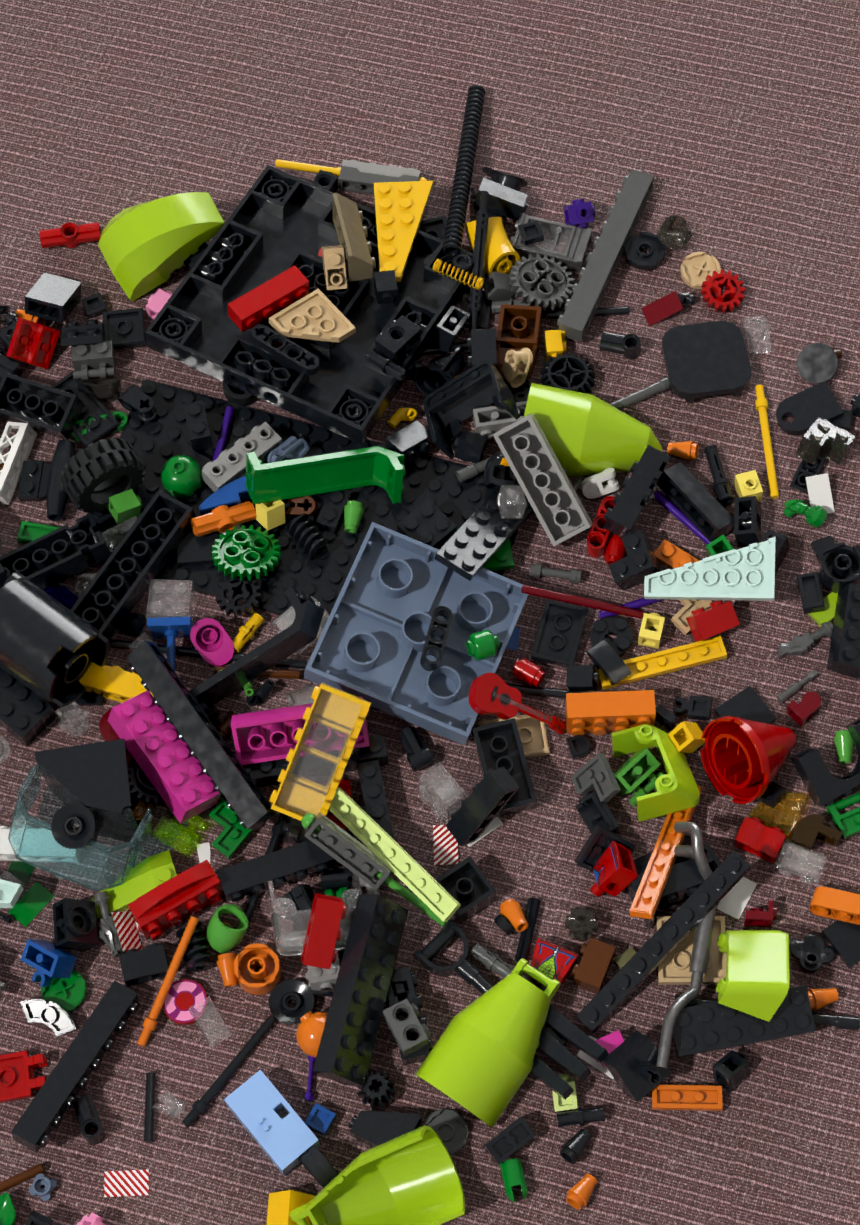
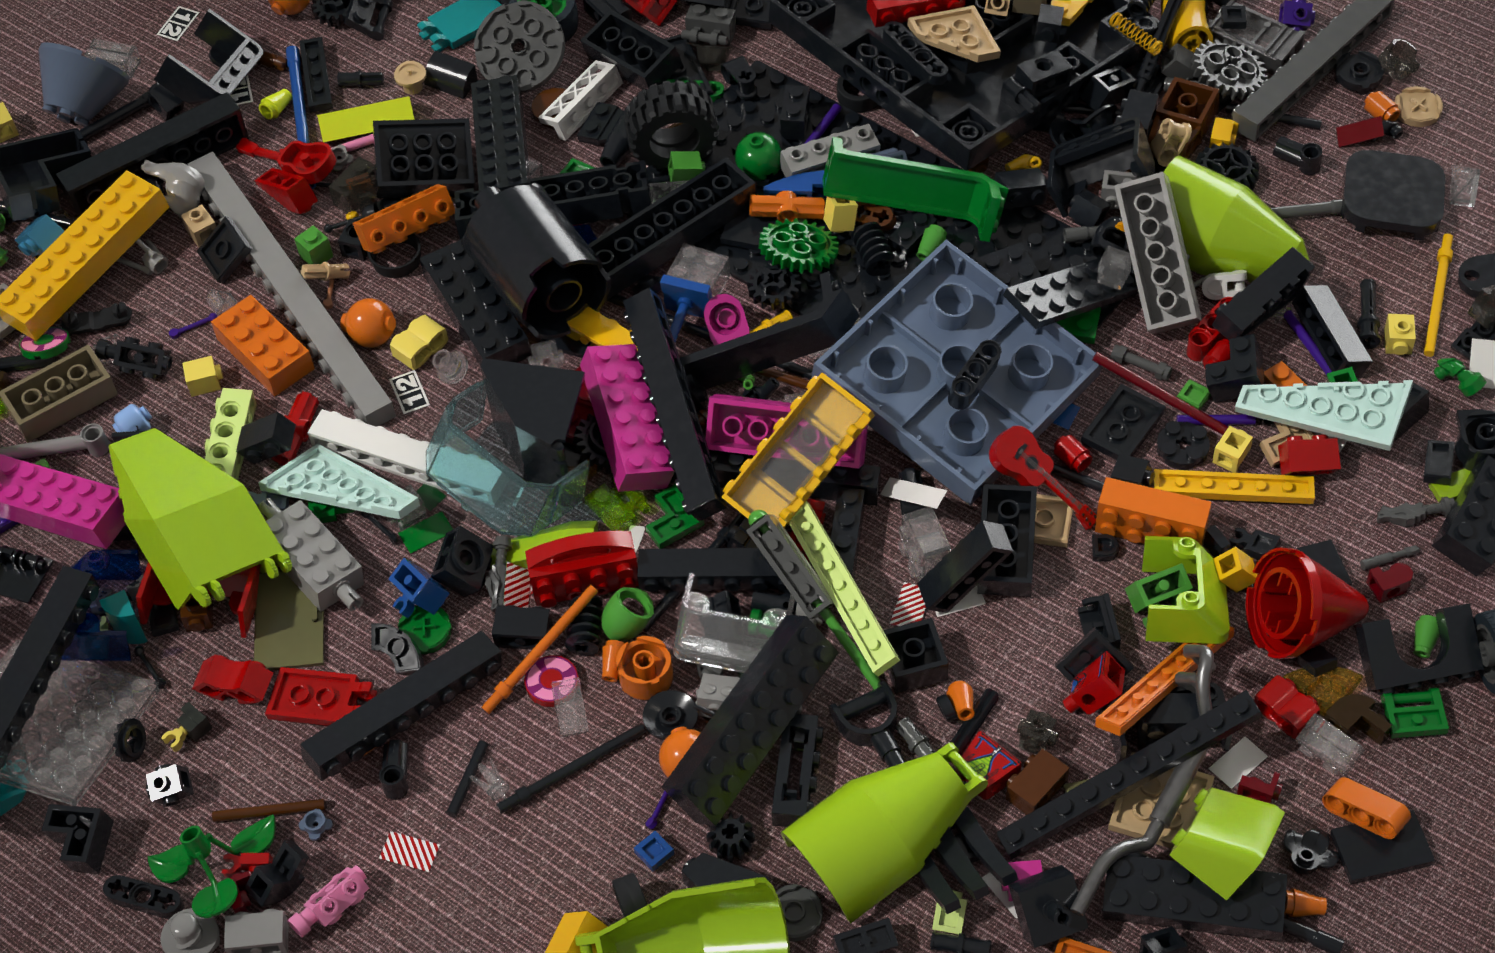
camera: 20 degrees right, 10 degrees down
(63, 824) = (490, 437): black dish -> none
(271, 1122) = (596, 834): light blue brick -> none
(323, 931) = (730, 640): red brick -> none
(401, 1029) = (786, 776): dark grey brick -> none
(418, 751) = (913, 492): none -> white sticker
(482, 645) = (1026, 398): green head -> none
(596, 775) = (1112, 579): dark grey plate -> none
(605, 590) = (1194, 394): none -> bright green tile
(609, 661) = (1170, 464): black slope -> none
(672, 281) = (1381, 105): none -> orange brick
(686, 450) = (1337, 277): orange cone -> none
(712, 291) = (1437, 130): red gear -> none
(747, 521) = (1387, 360): black brick -> none

